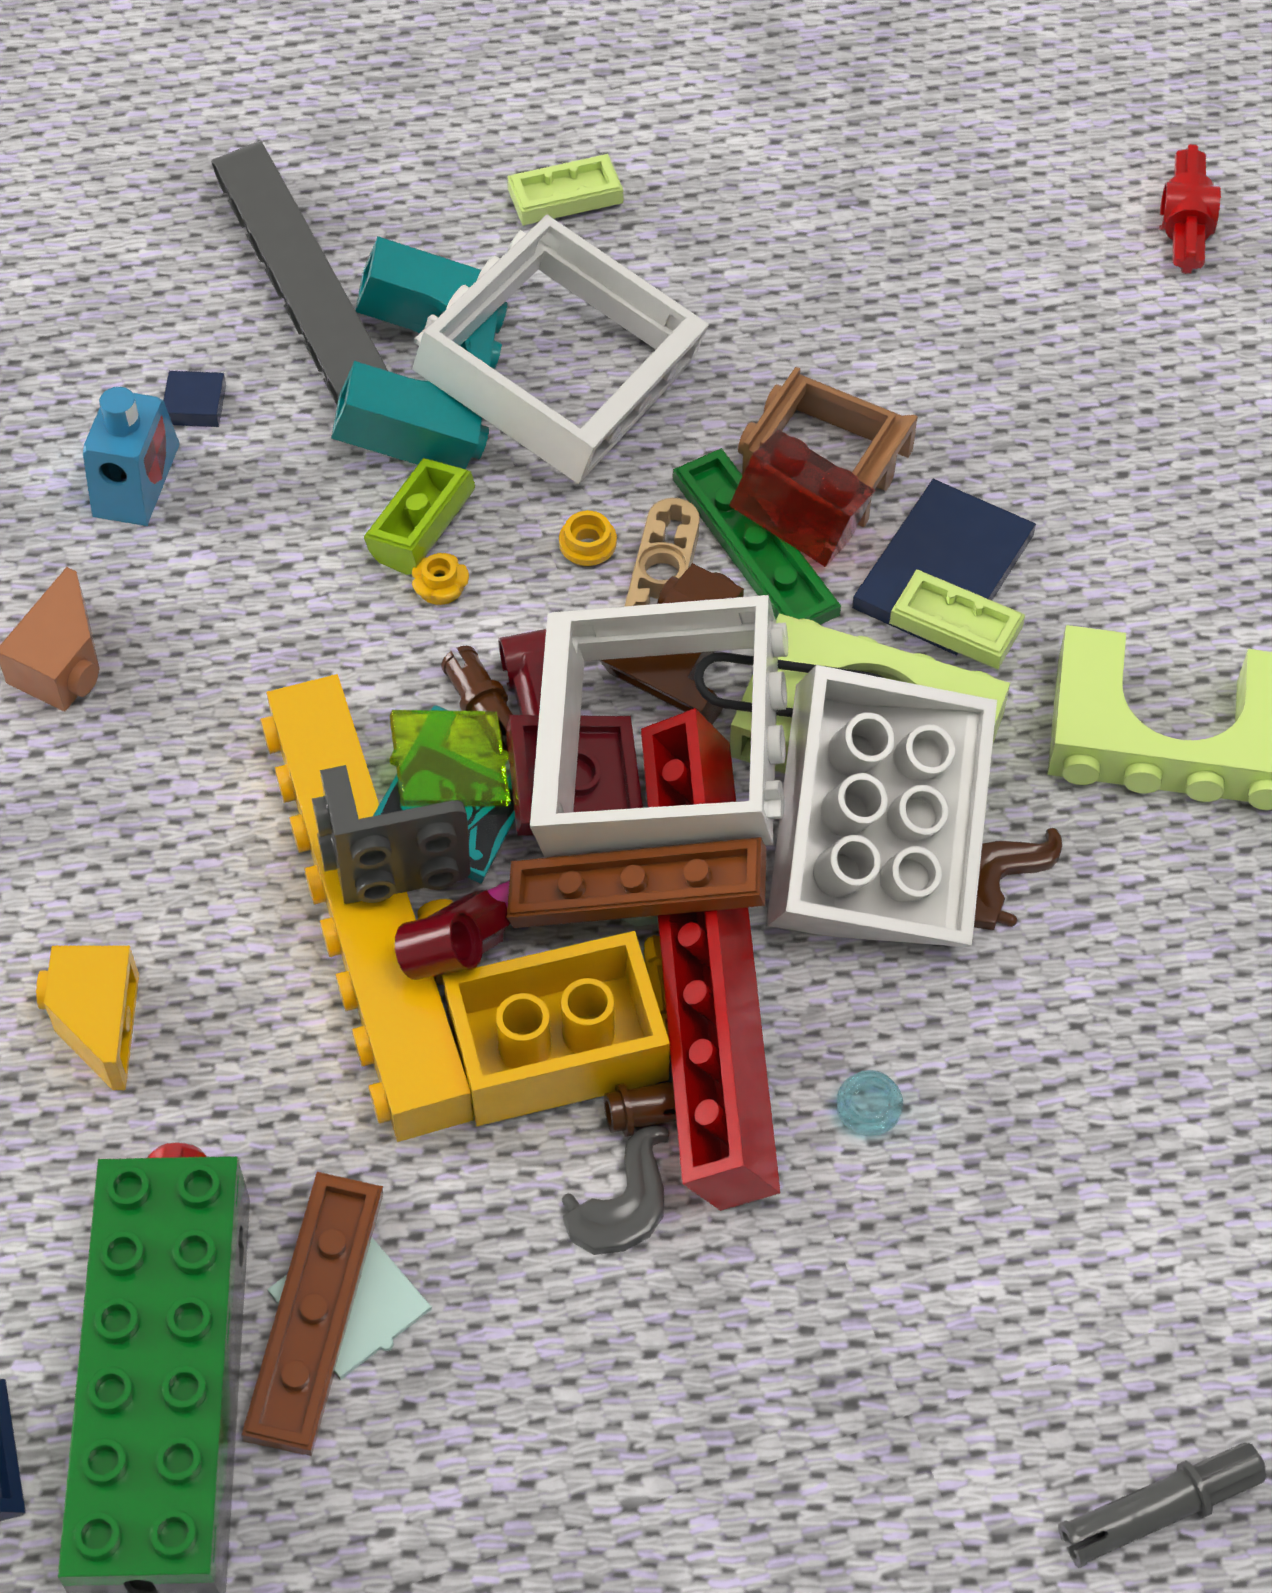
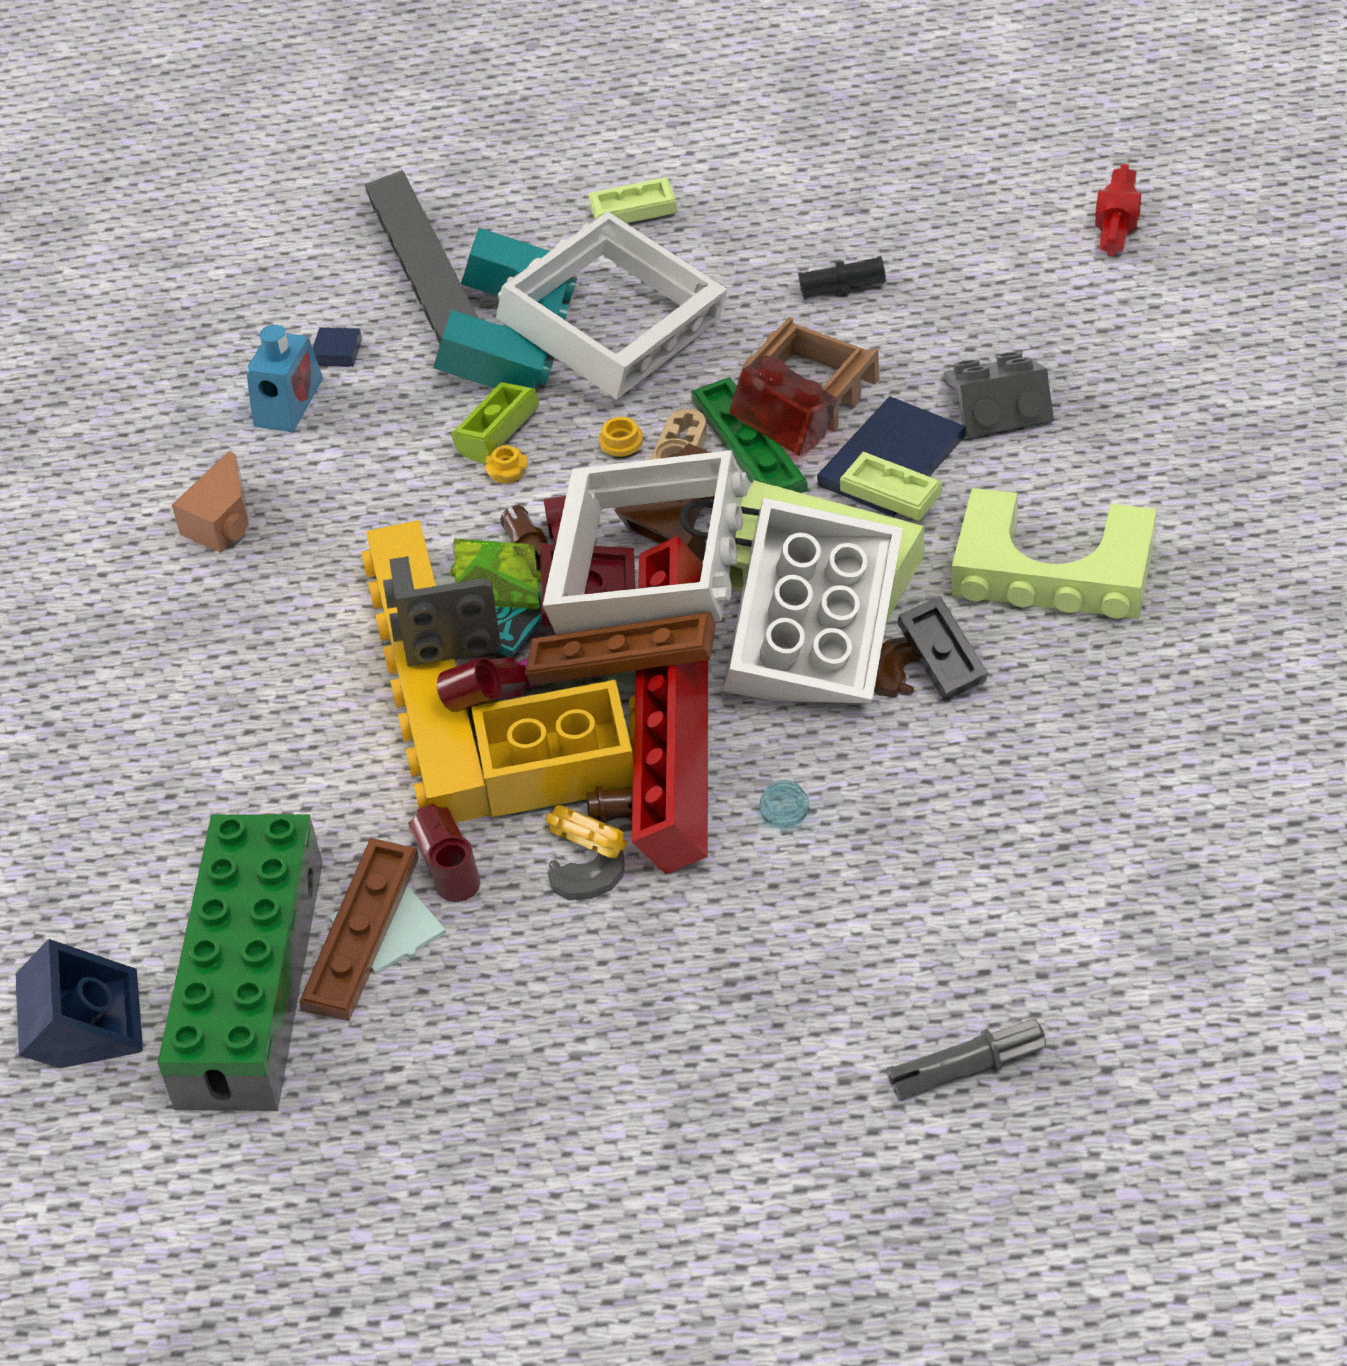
camera: 10 degrees right, 10 degrees down
(93, 1005) = (221, 733): yellow slope -> none
(421, 1188) = (445, 853): none -> dark red piece
(611, 1154) = (586, 831): none -> yellow axle
(850, 302) = (842, 277): none -> black pin
(1053, 863) = (942, 648): none -> plate
(1077, 474) = (1001, 393): none -> dark grey bracket

